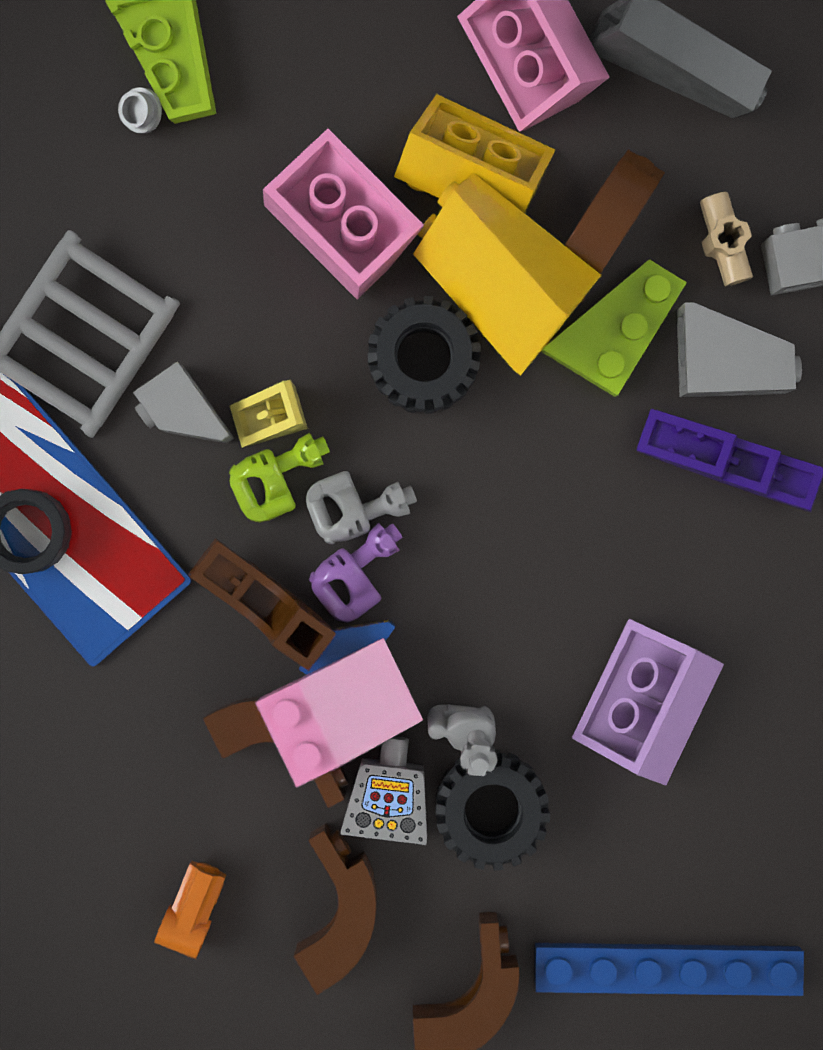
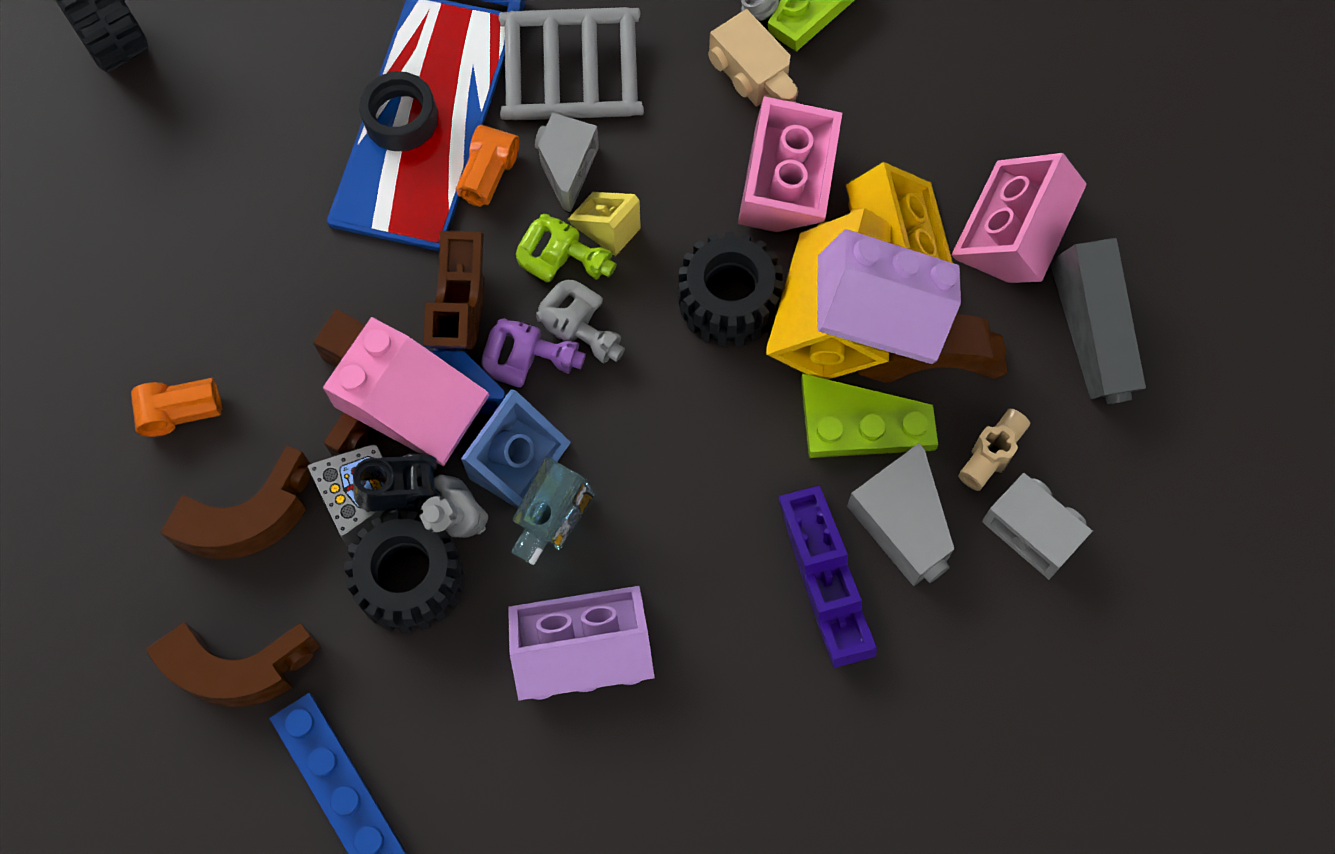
camera: 50 degrees right, 20 degrees down
(130, 474) = (490, 155): none -> orange piece
(204, 163) = (752, 59): none -> tan hinge
(421, 768) = (399, 482): none -> black piece
(446, 645) = (512, 449): none -> medium blue slope
(518, 640) = (552, 492): none -> clear light blue torso
(565, 243) = (886, 296): none -> lavender slope

